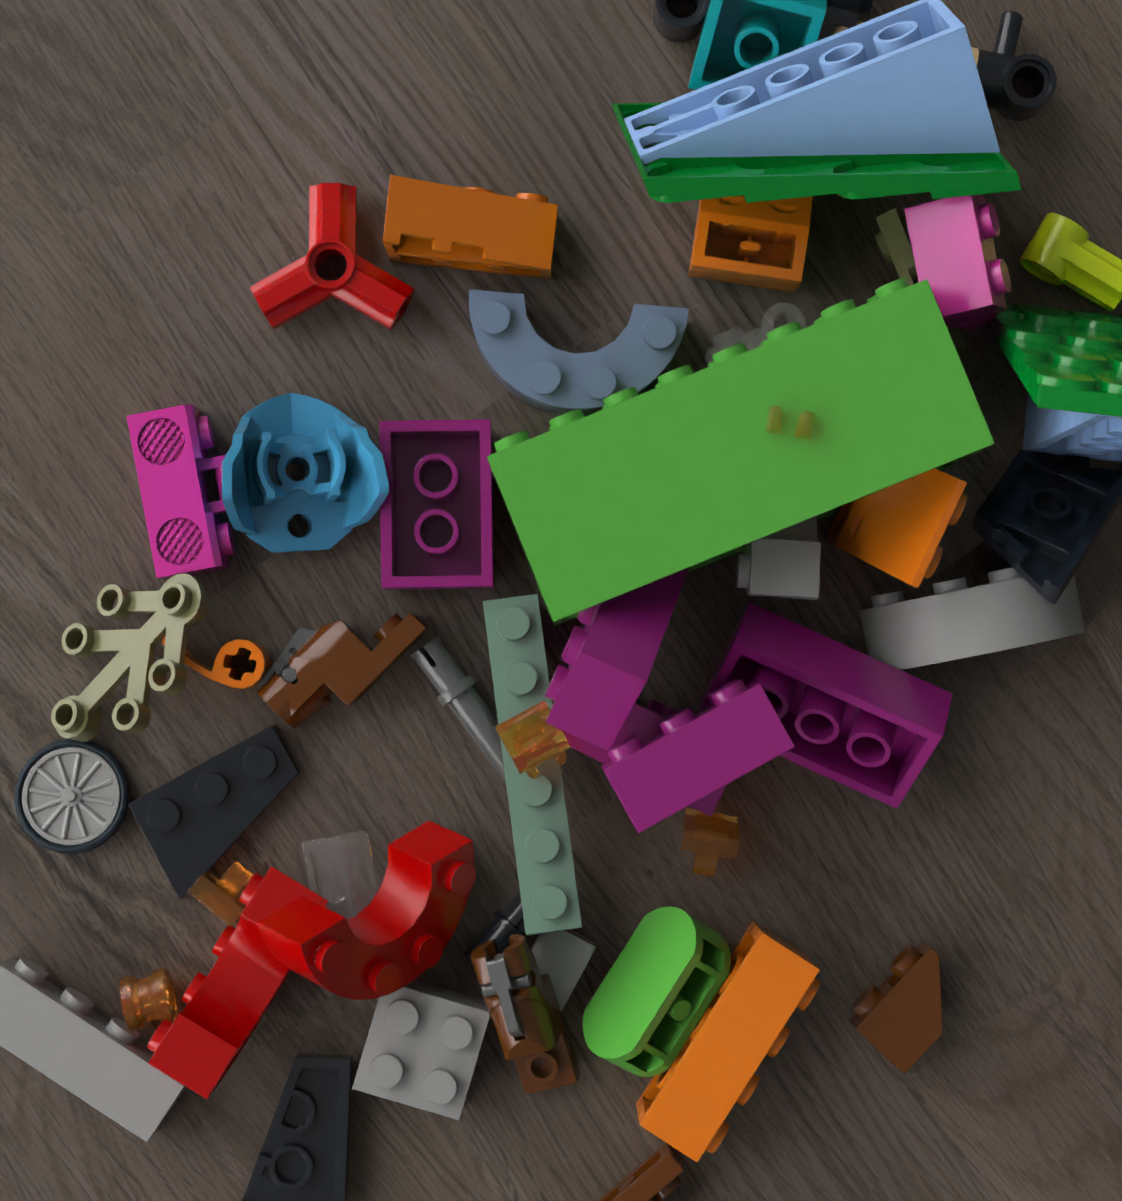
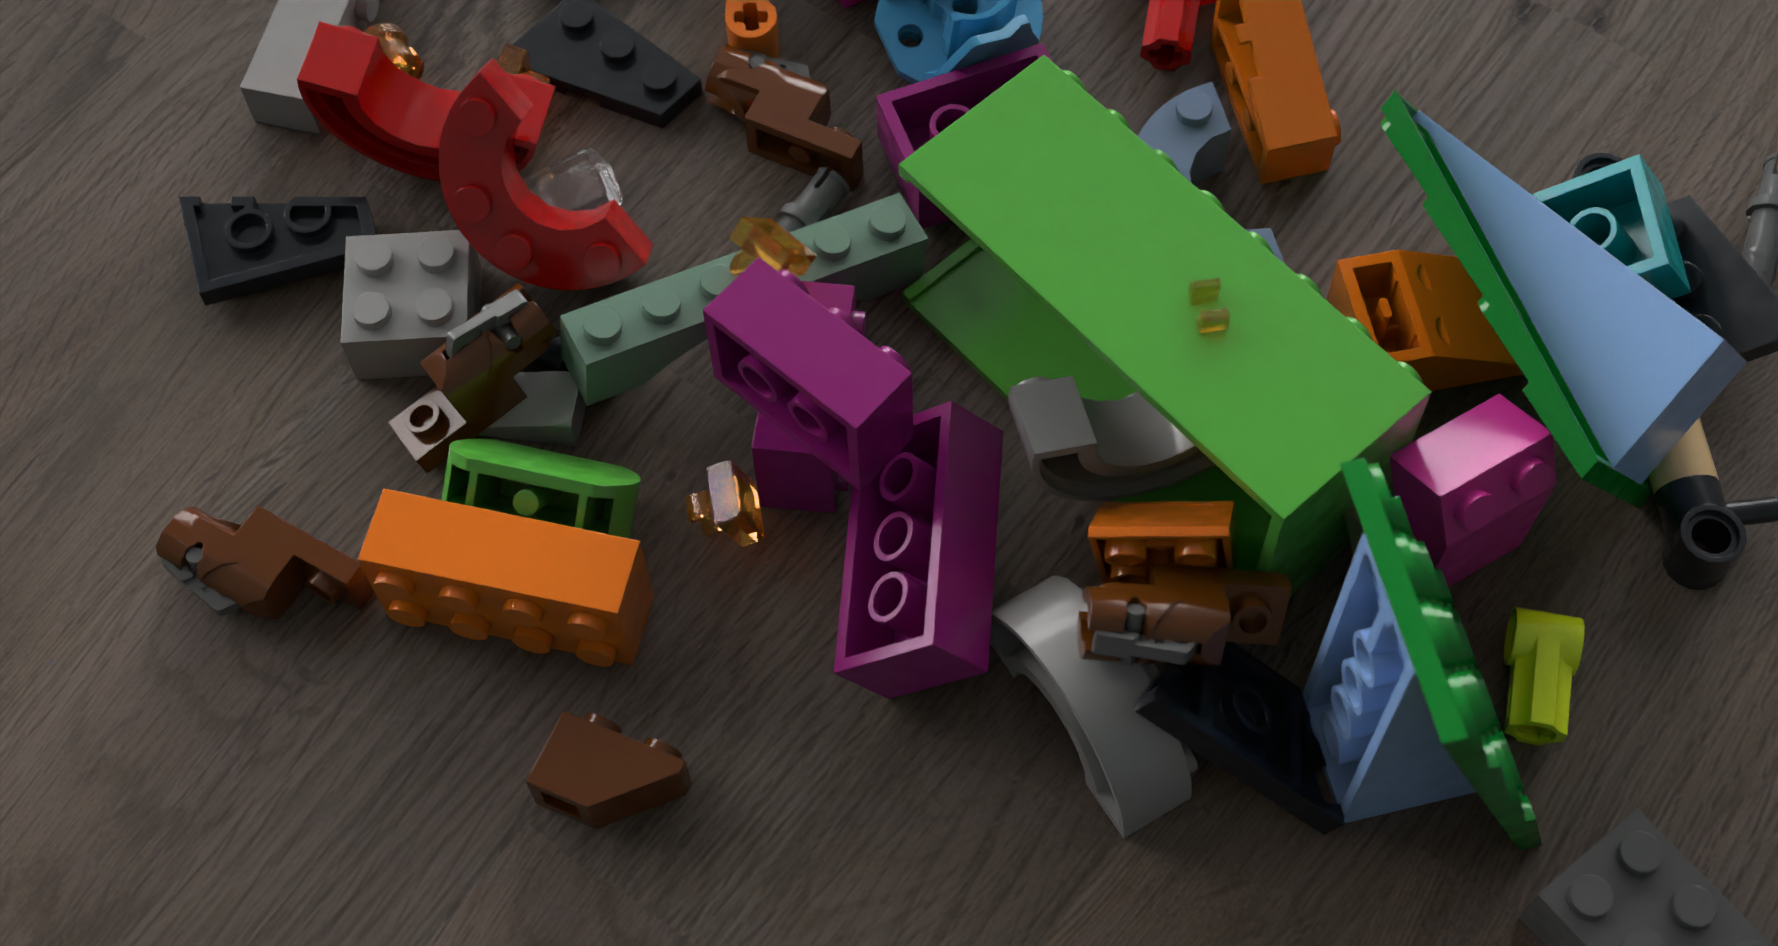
camera: 75 degrees right, 25 degrees down
(611, 660) = (922, 288): magenta brick -> none
(994, 541) = (1182, 615): none -> reddish brown plate

